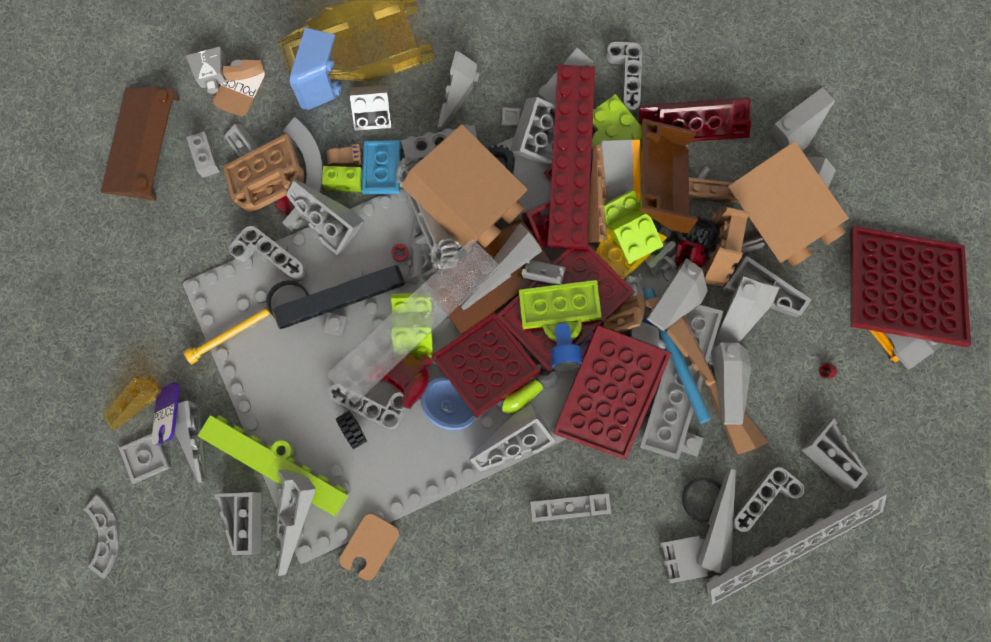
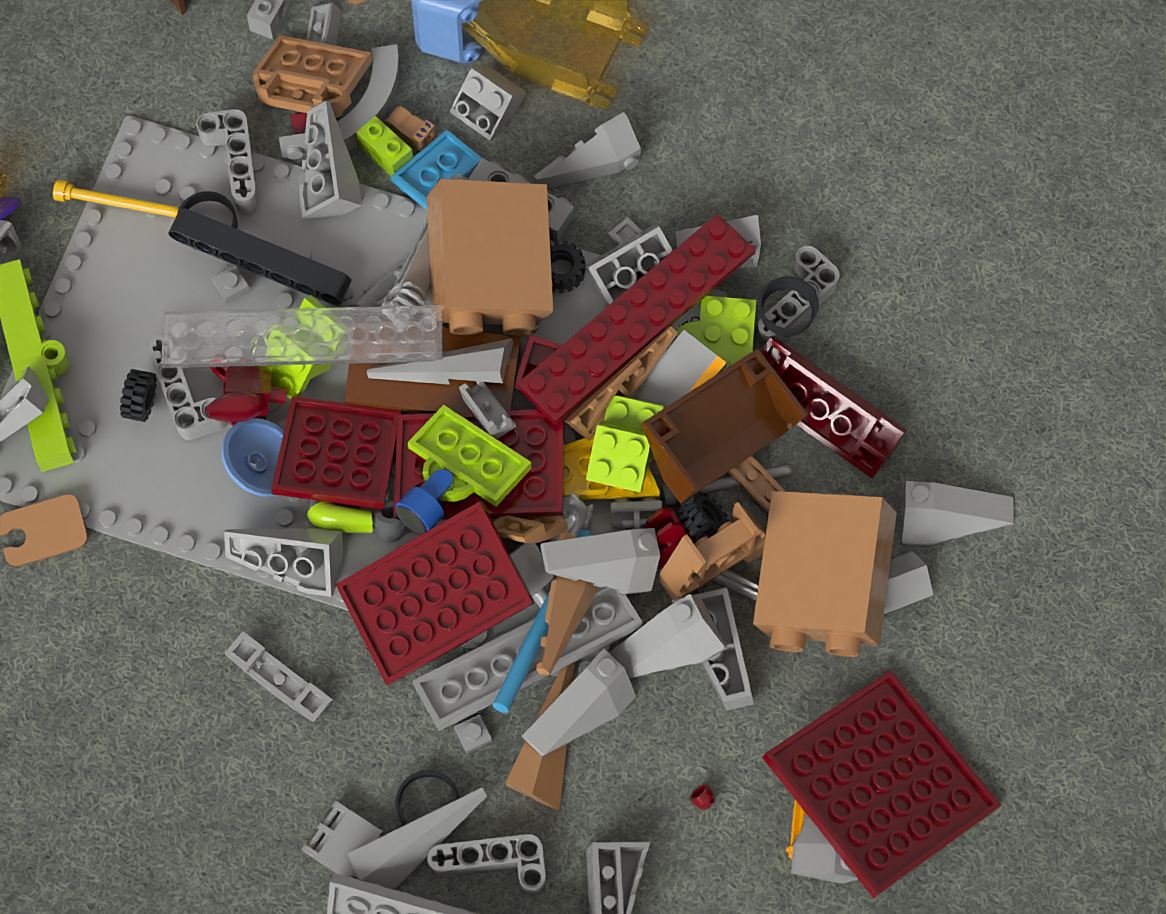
camera: 45 degrees right, 10 degrees down
(401, 247) = (367, 278): dark red bush -> none
(635, 67) = (790, 283): none -> black tyre

